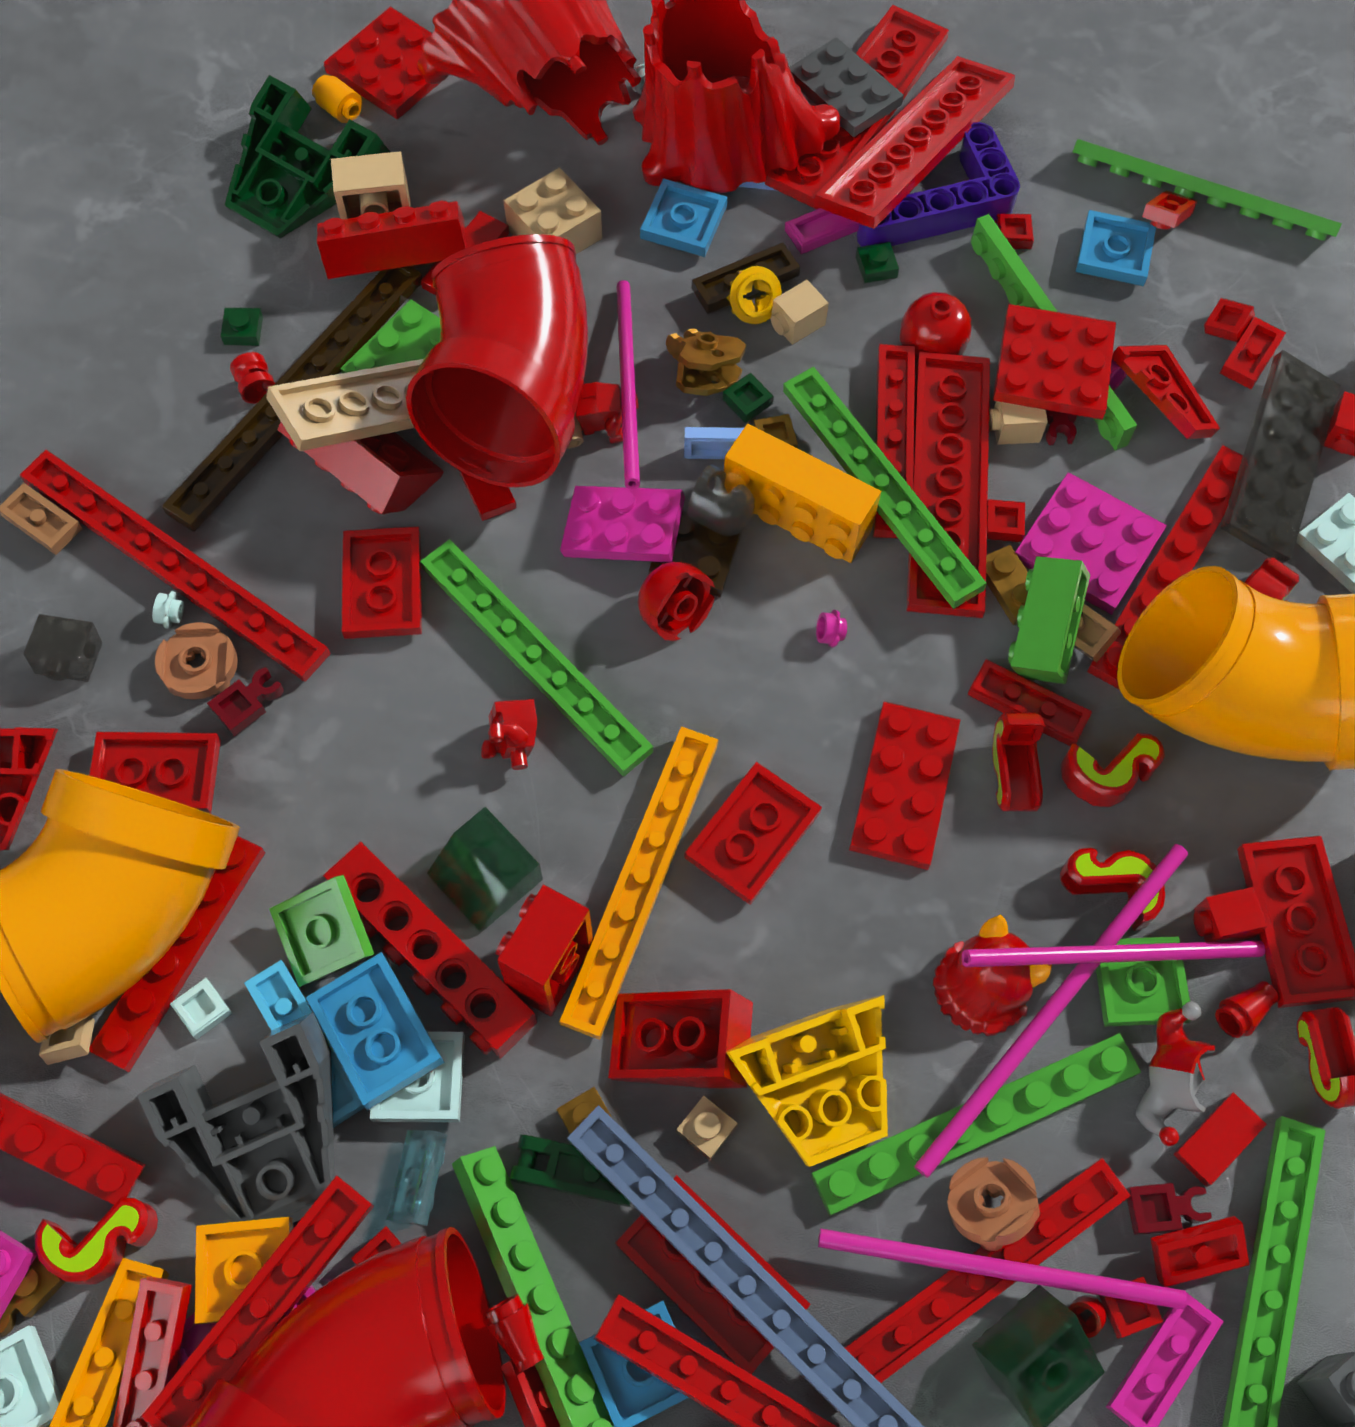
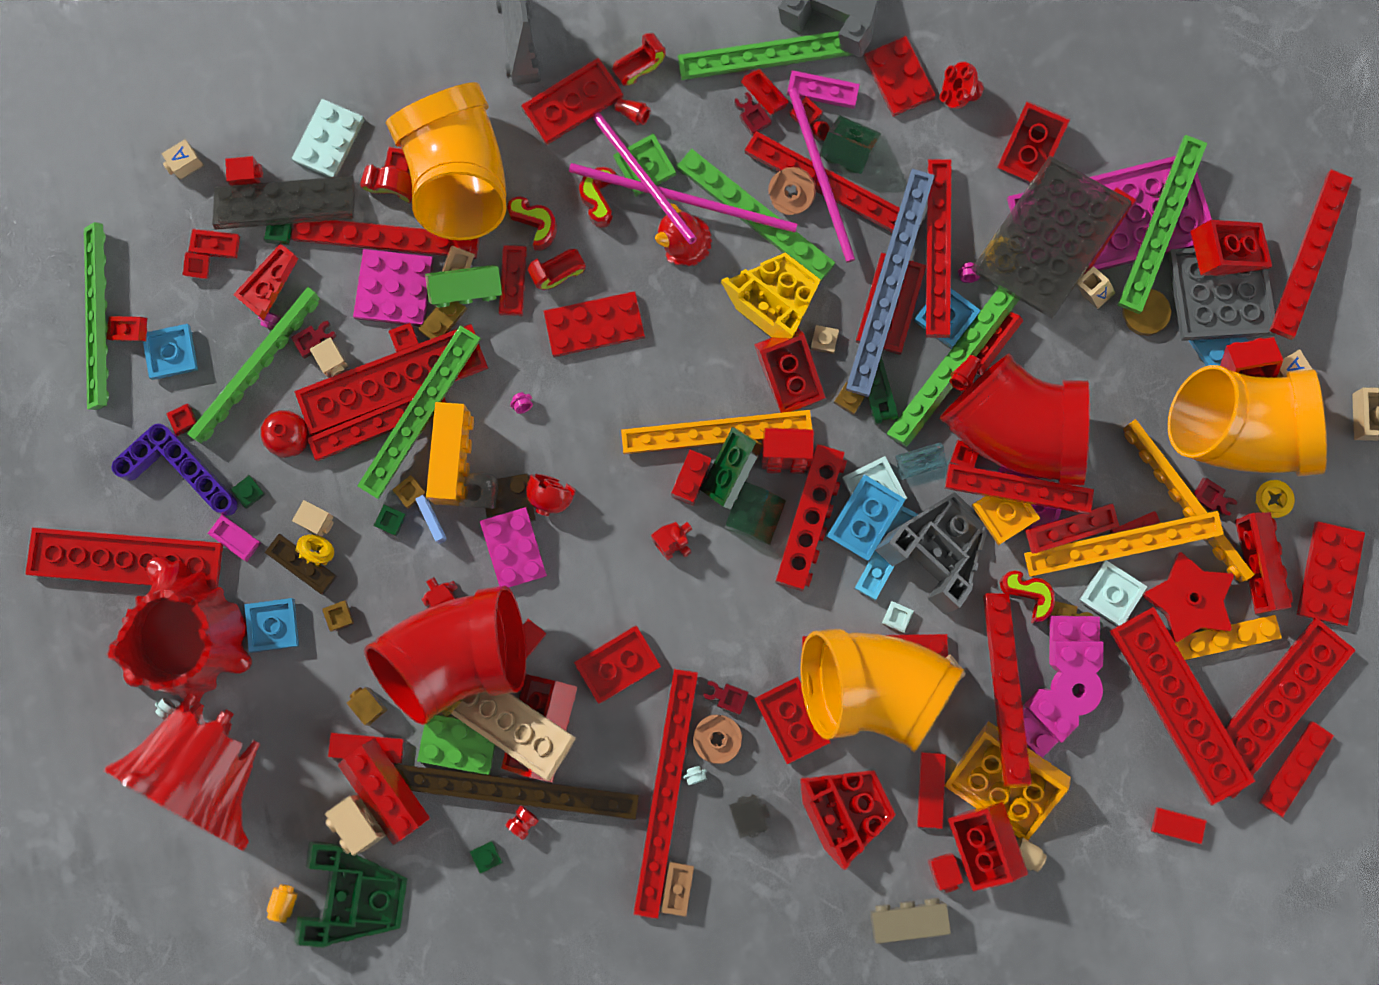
camera: 110 degrees left, 15 degrees up
(321, 931) = (831, 573): bright green plate -> none
(383, 63) = (228, 888): red plate -> none
(537, 658) = (619, 555): bright green plate -> none
(555, 208) = (314, 704): tan brick -> none
(567, 857) = (731, 468): none -> dark green plate
(589, 803) = (691, 477): none -> red brick
(627, 383) = (420, 589): dark pink piece -> none
(652, 290) = (338, 616): none -> pearl gold plate
(705, 359) = (380, 554): pearl gold hinge -> none
(753, 833) = (662, 387): red plate -> none
(848, 83) = (118, 571): dark grey plate -> none
(914, 142) = (145, 503): red plate -> none
(1055, 361) = (285, 348): red plate -> none
(1173, 1073) = (687, 132): piece -> none
(1219, 1139) = (705, 101): red tile -> none
(1230, 916) = (589, 134): red brick -> none
(1235, 431) = (278, 234): none -> dark green plate

